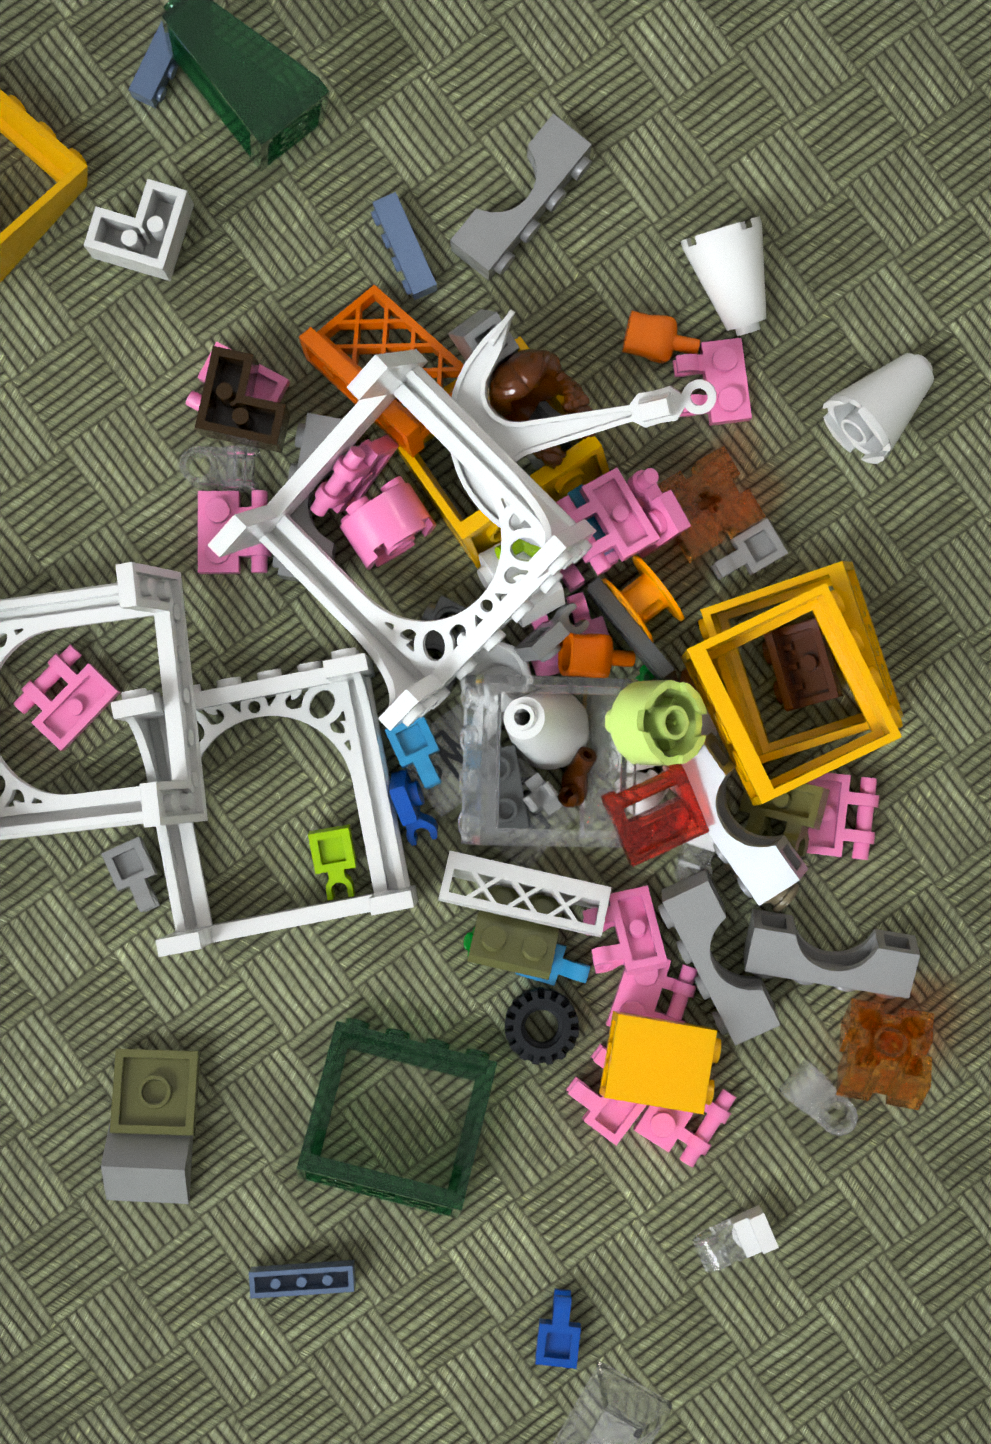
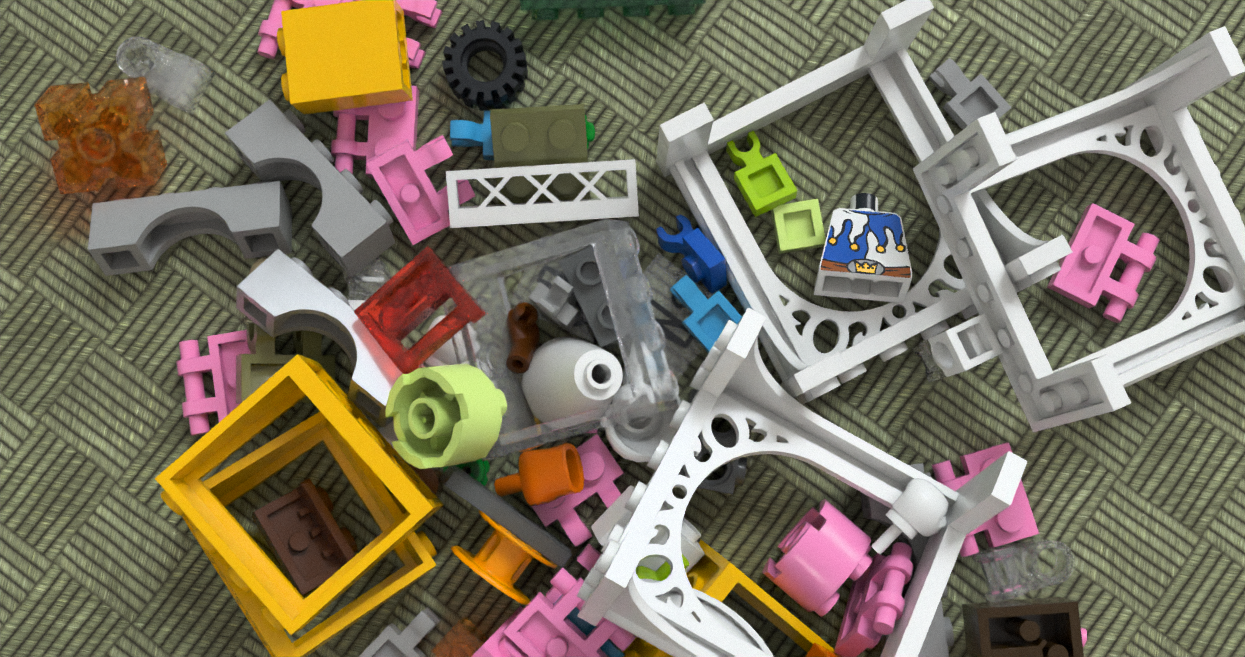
camera: 165 degrees right, 5 degrees down
(217, 658) = (959, 348): none -> white leg
(269, 763) = (864, 254): none -> torso
(300, 535) = (917, 510): none -> white piece
(314, 806) = (798, 226): none -> yellowish green tile
(545, 639) = (601, 477): light grey plate -> none

